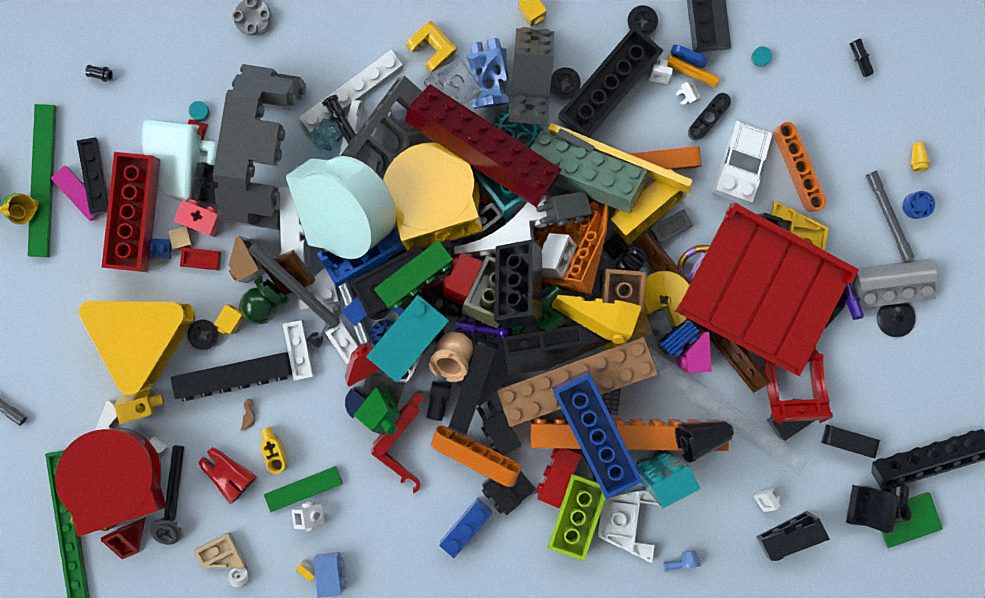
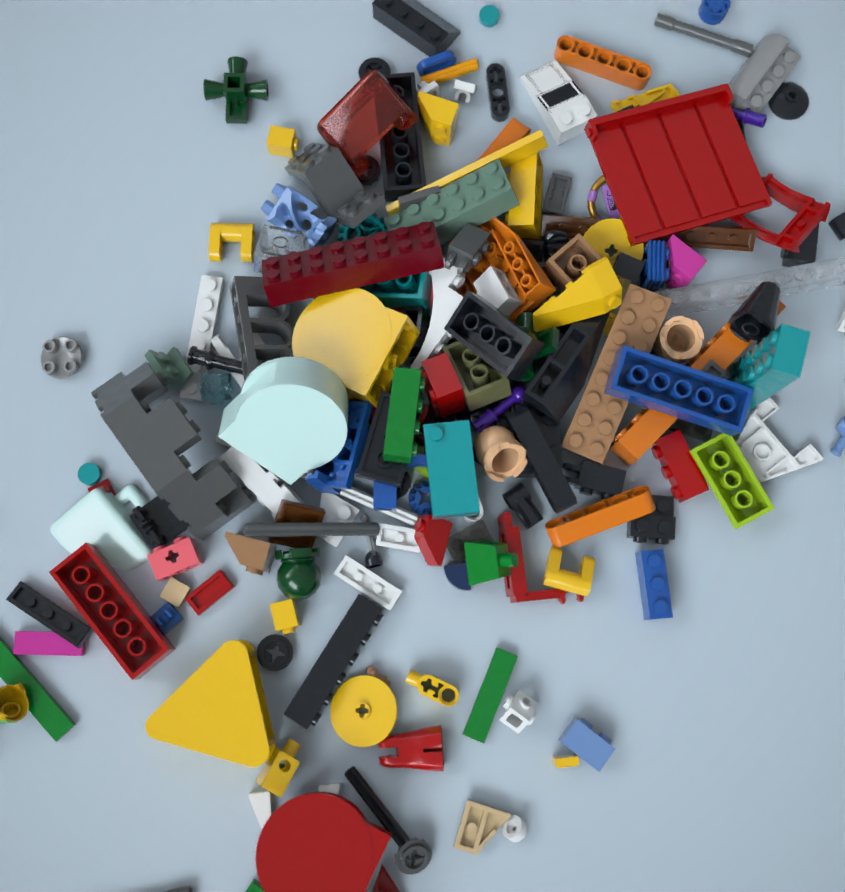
camera: 45 degrees left, 10 degrees down
(205, 422) = (376, 724): none -> yellow piece
(310, 93) = (171, 366): none -> sand green bracket
(415, 471) = (565, 580): none -> yellow connector
(594, 53) = (365, 118): none -> clear red windscreen
(633, 442) = (713, 369): none -> dark grey tile
(639, 401) = (679, 339): none -> light nougat tile
(647, 98) = (438, 117): none -> yellow slope

